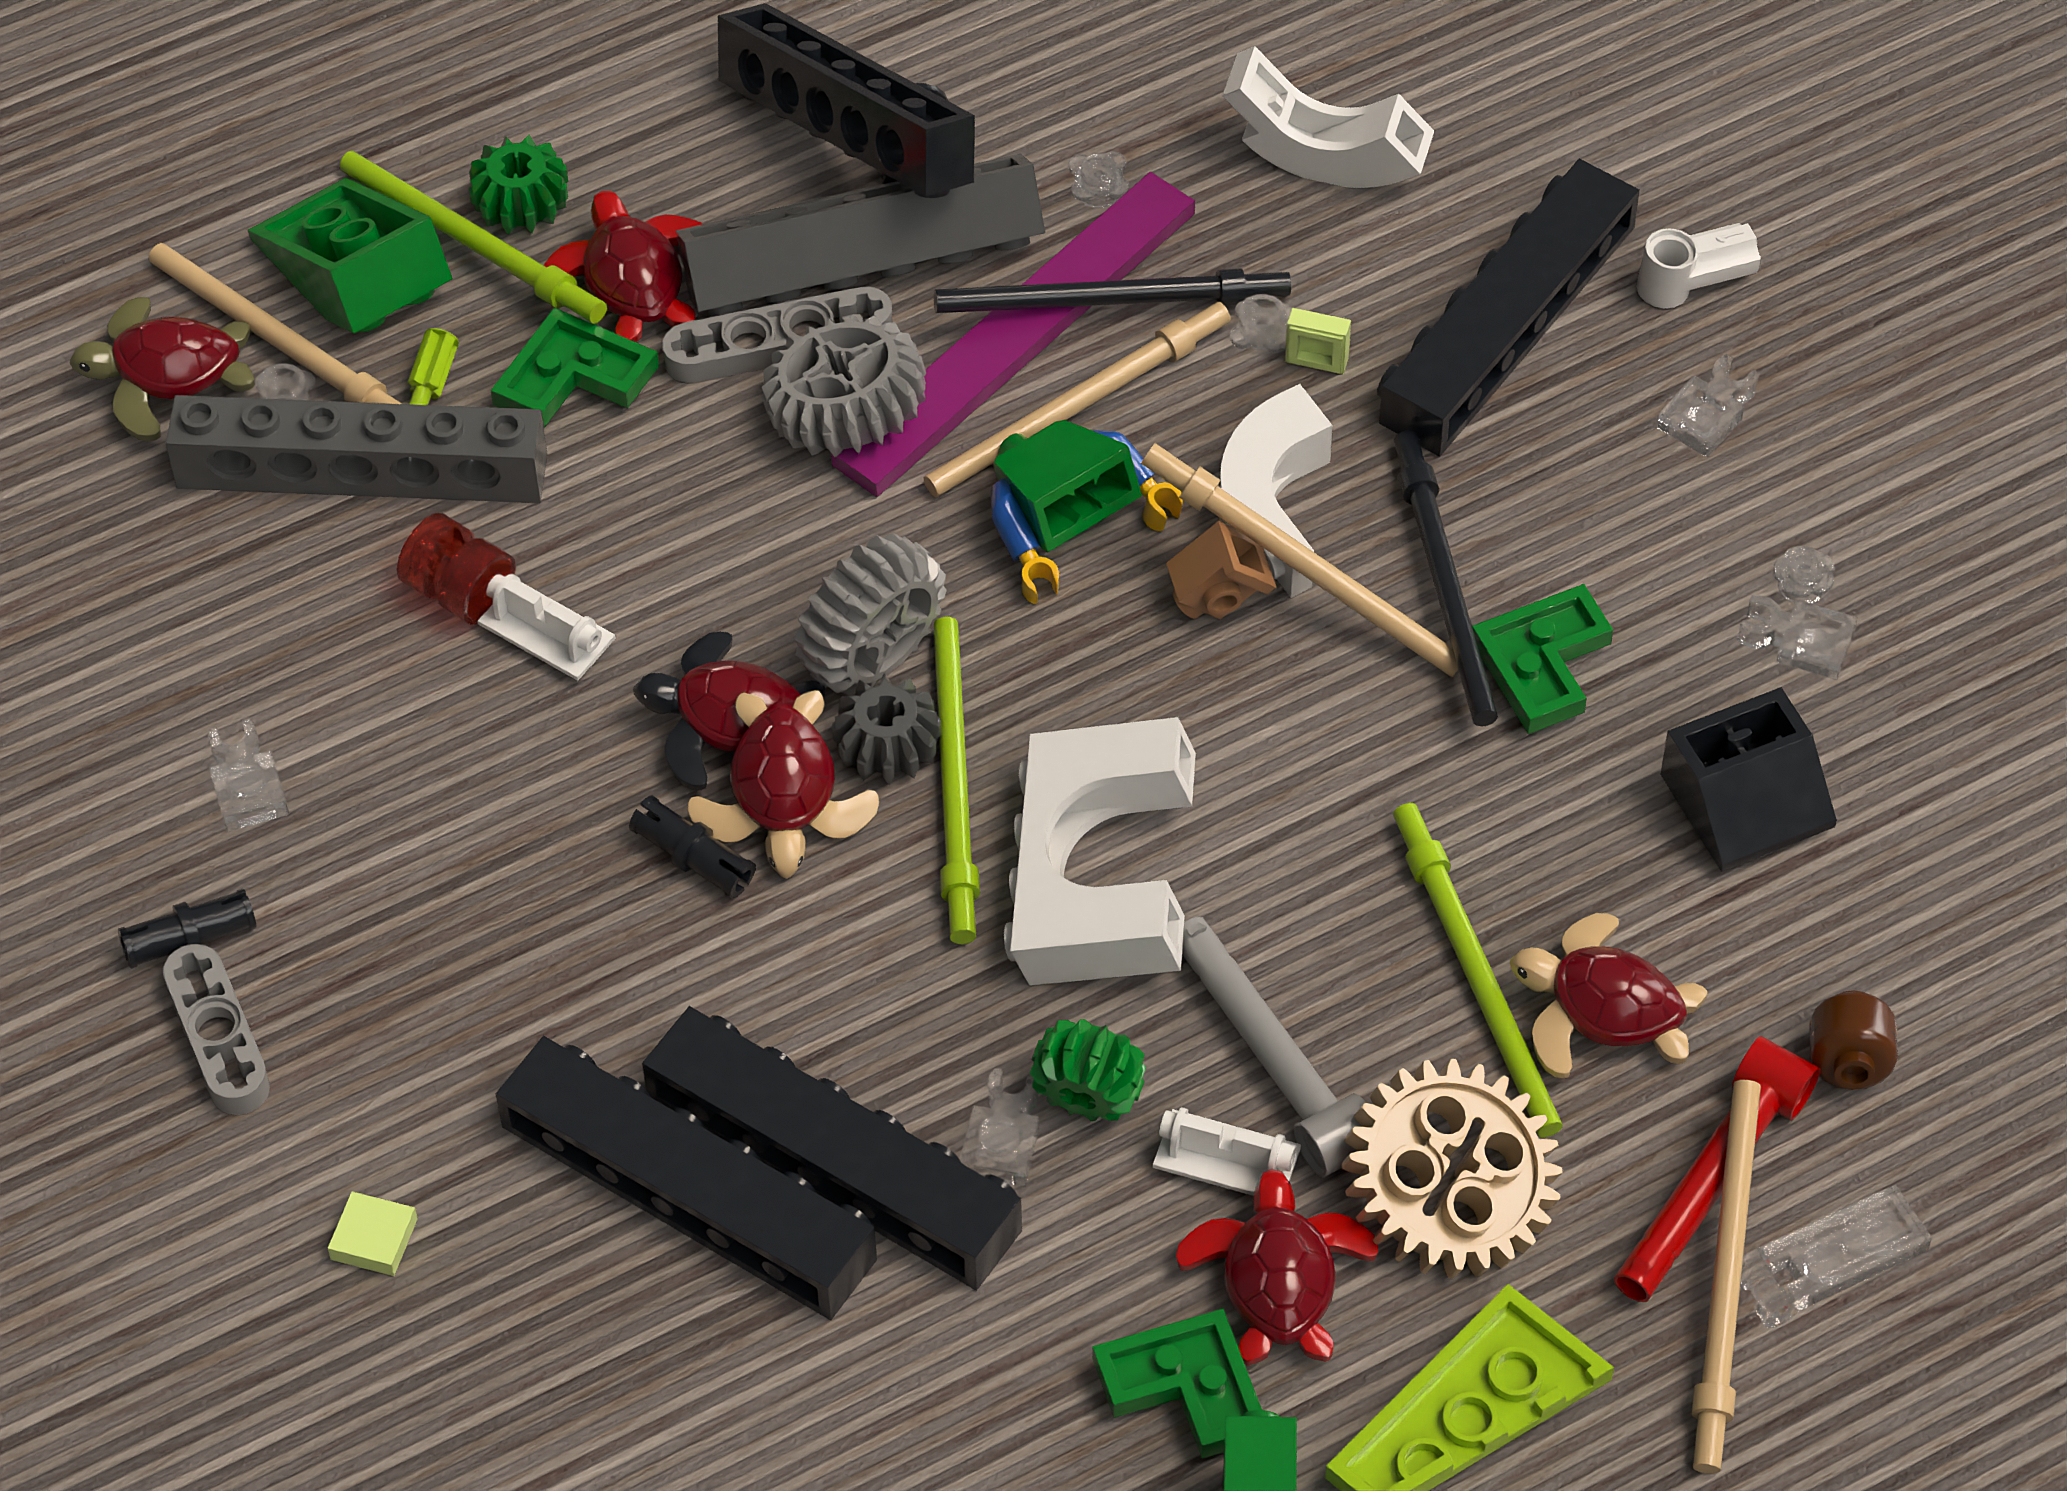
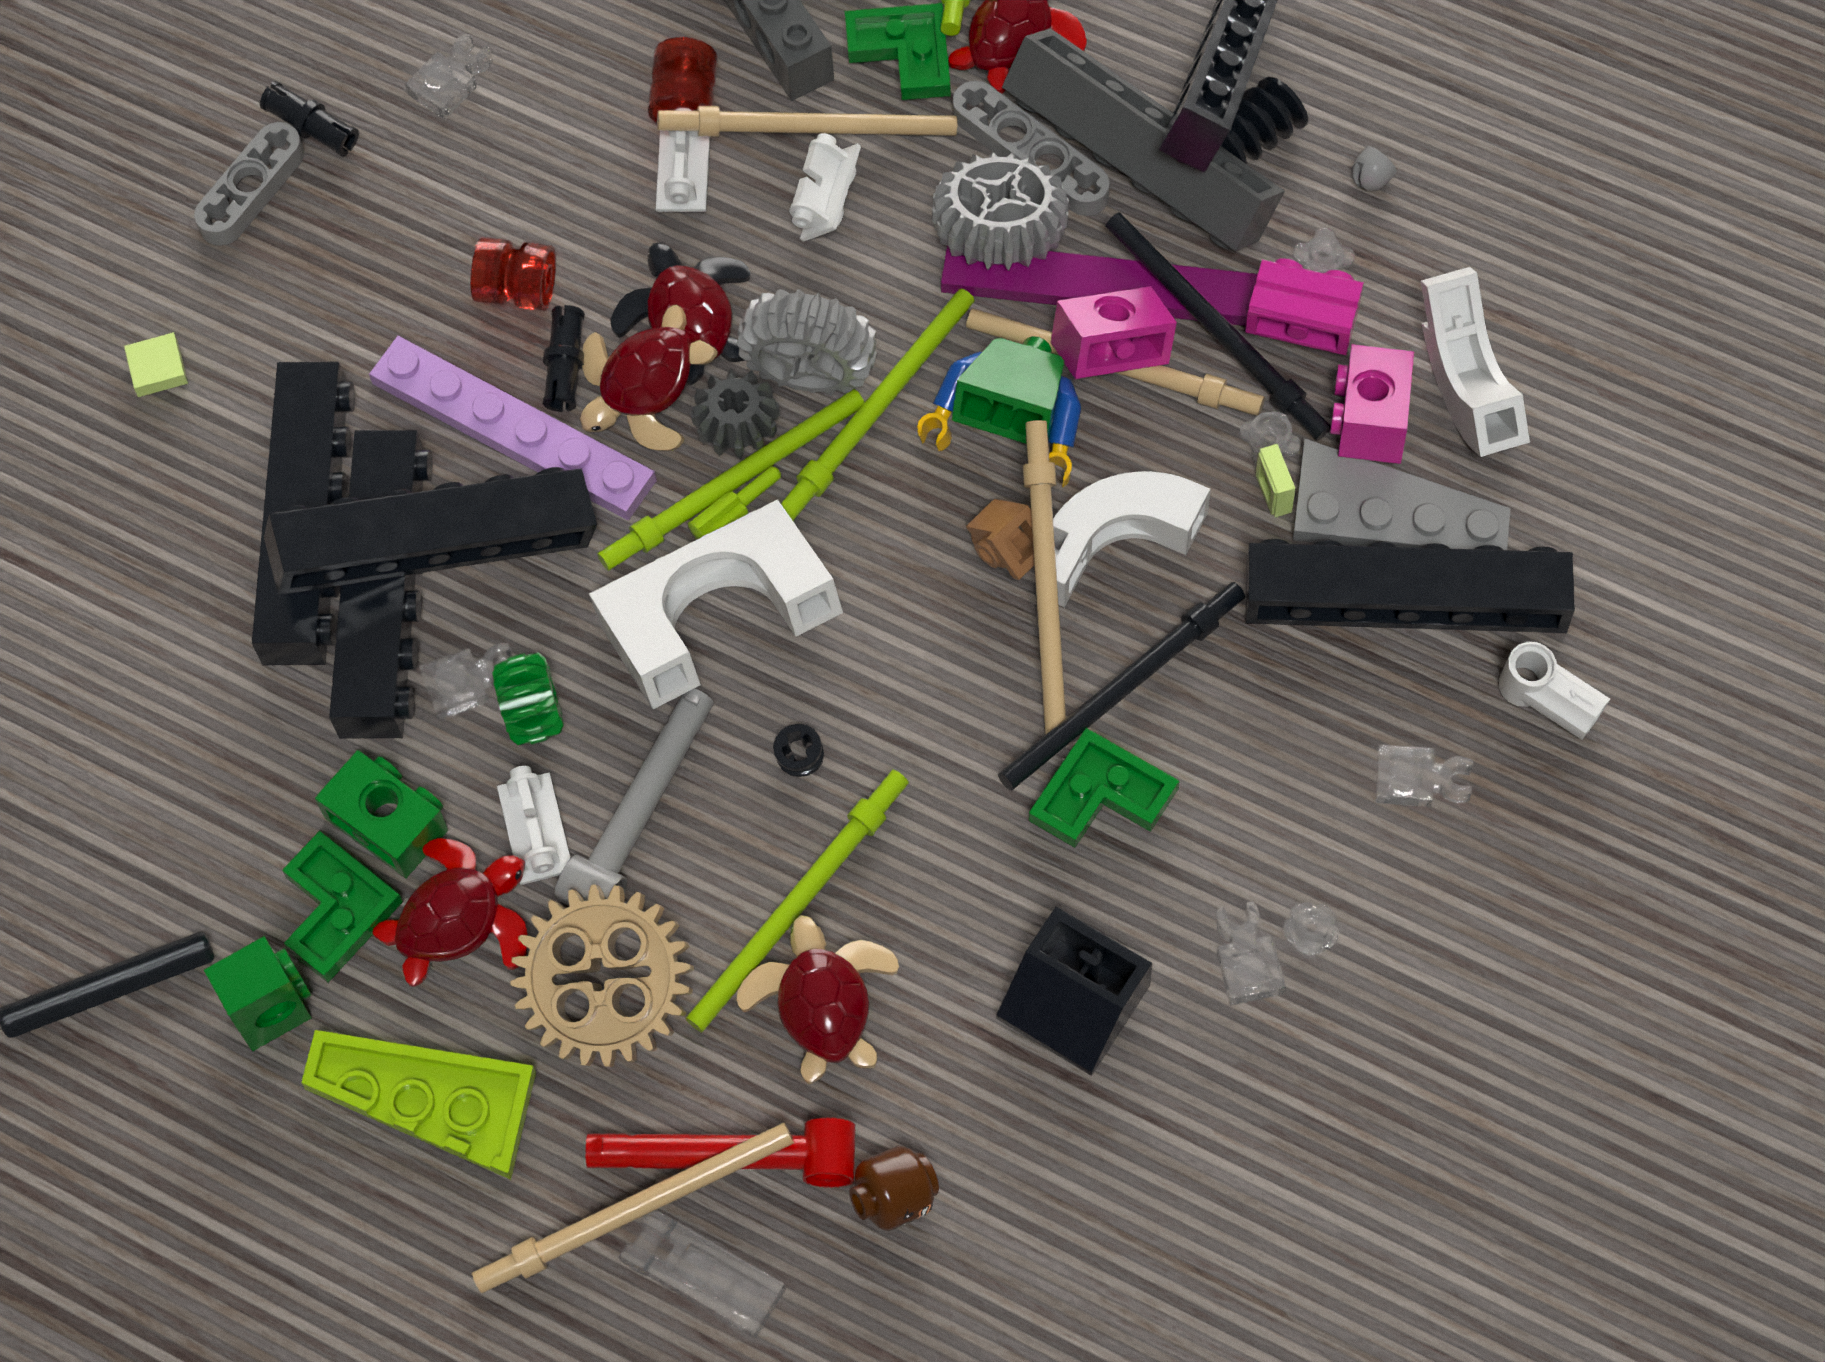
camera: 60 degrees right, 10 degrees up
(539, 554) = (710, 121): none -> tan bar
(550, 839) = (510, 273): none -> clear red wheel
(687, 516) = (820, 204): none -> white hinge
(729, 940) = (510, 425): none -> lavender plate
(831, 1048) = (428, 529): none -> black brick
(989, 798) = (732, 505): none -> lime axle
(1008, 699) = (817, 474): none -> lime bar
(1036, 88) = (1372, 169): none -> light grey hinge
(1062, 367) = (1113, 332): none -> dark pink brick
(1092, 1308) = (365, 786): none -> green brick
(1157, 209) = (1304, 306): none -> dark pink brick
(1302, 218) = (1375, 403): none -> dark pink brick
(1309, 862) = (814, 753): none -> black bush
(1409, 278) = (1374, 503): none -> light grey wing

